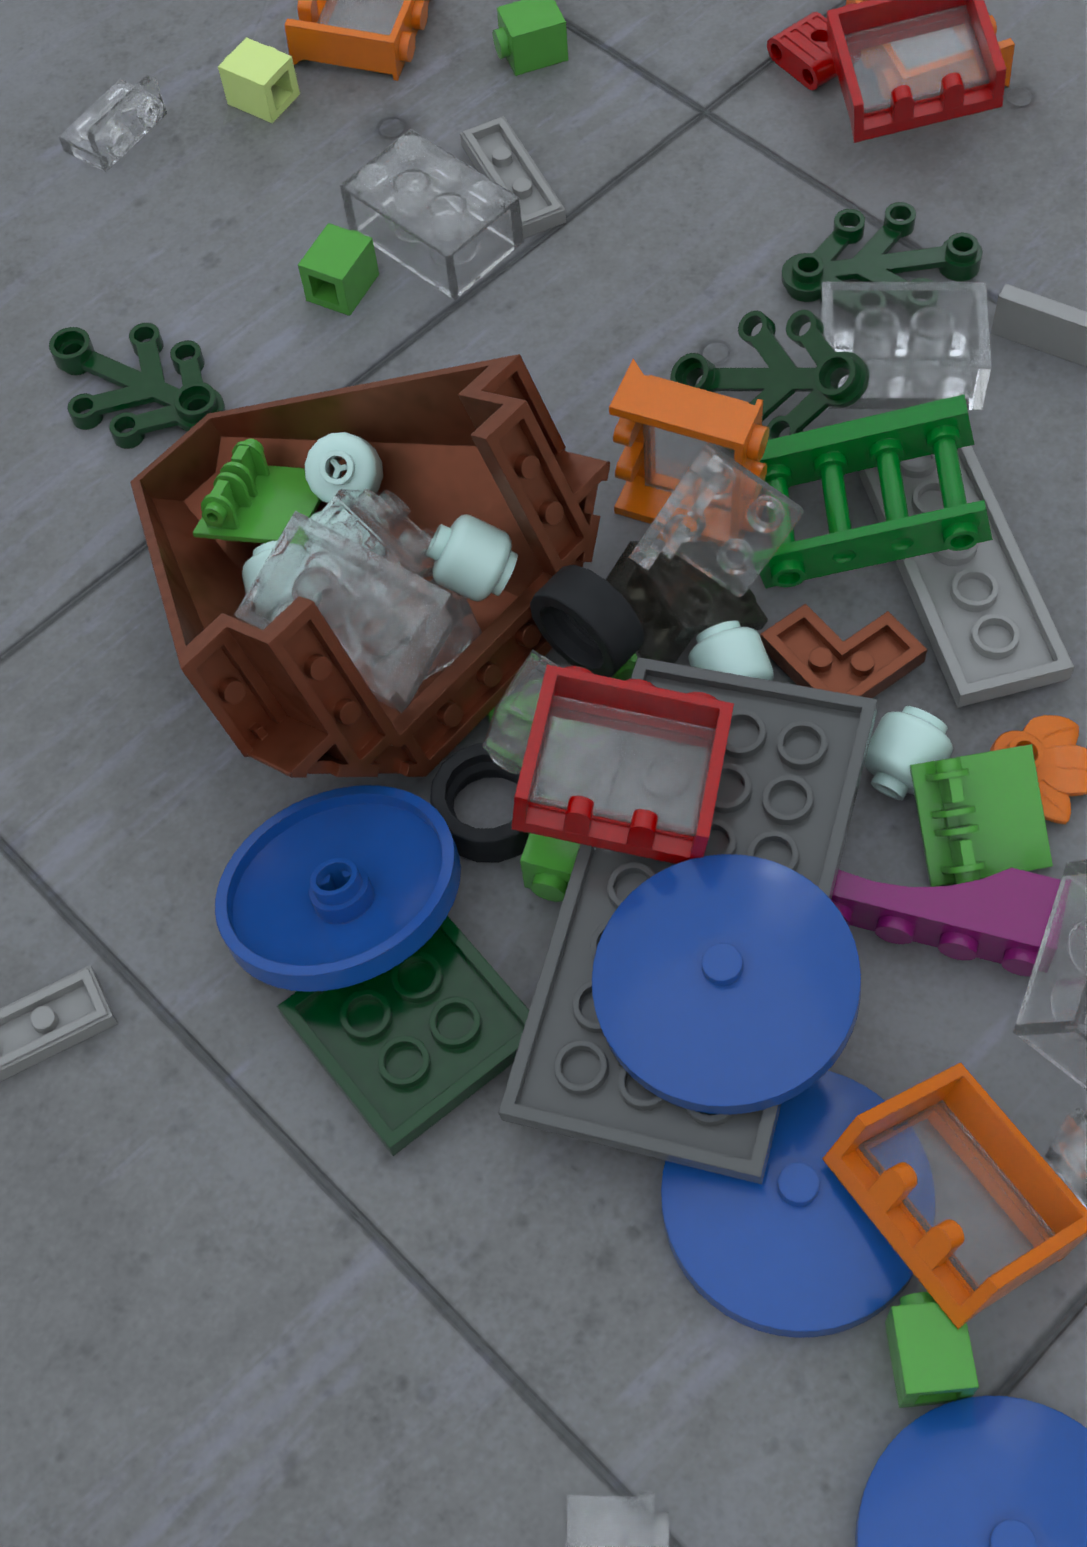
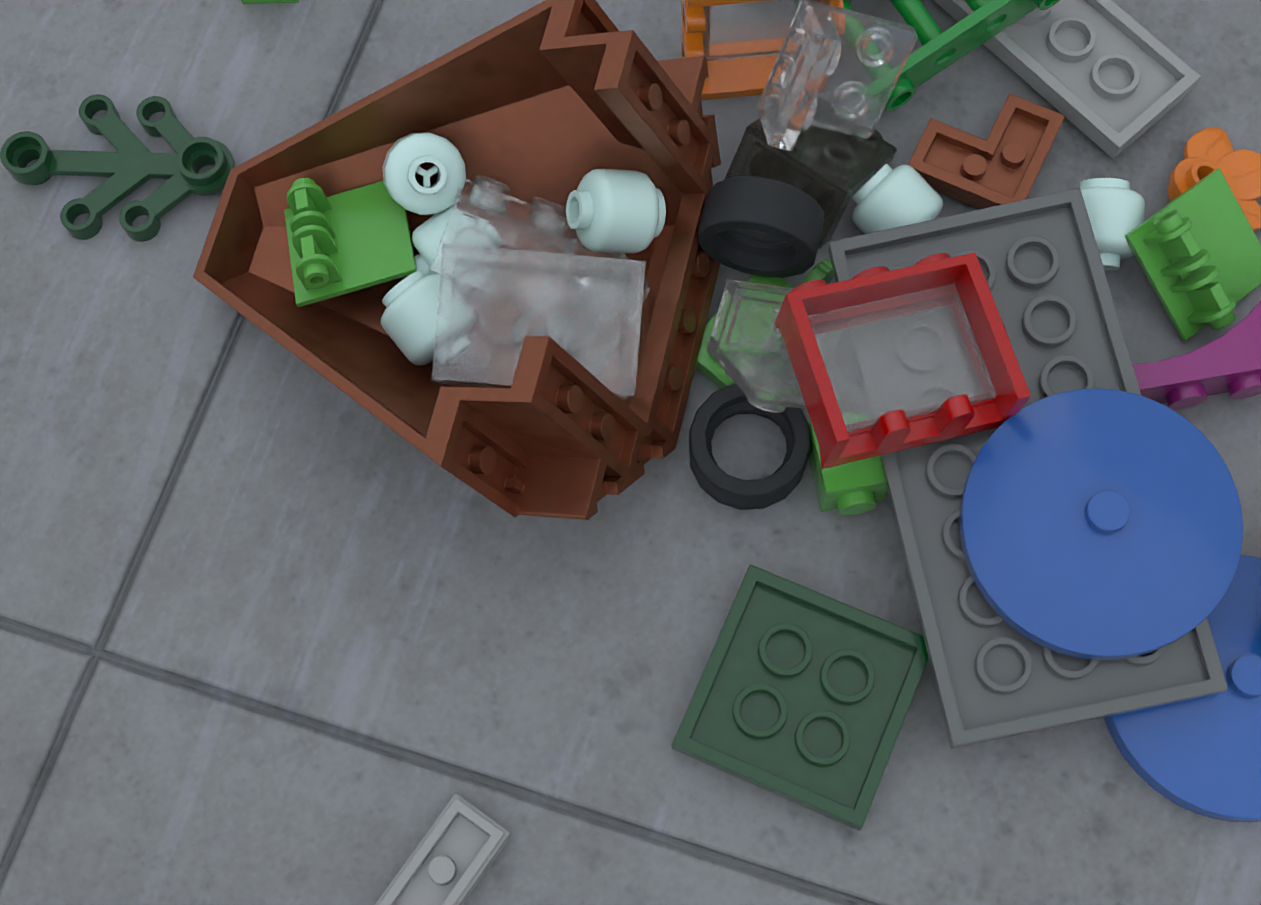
camera: 30 degrees left, 10 degrees up
(338, 888) = (665, 602): blue dish -> none

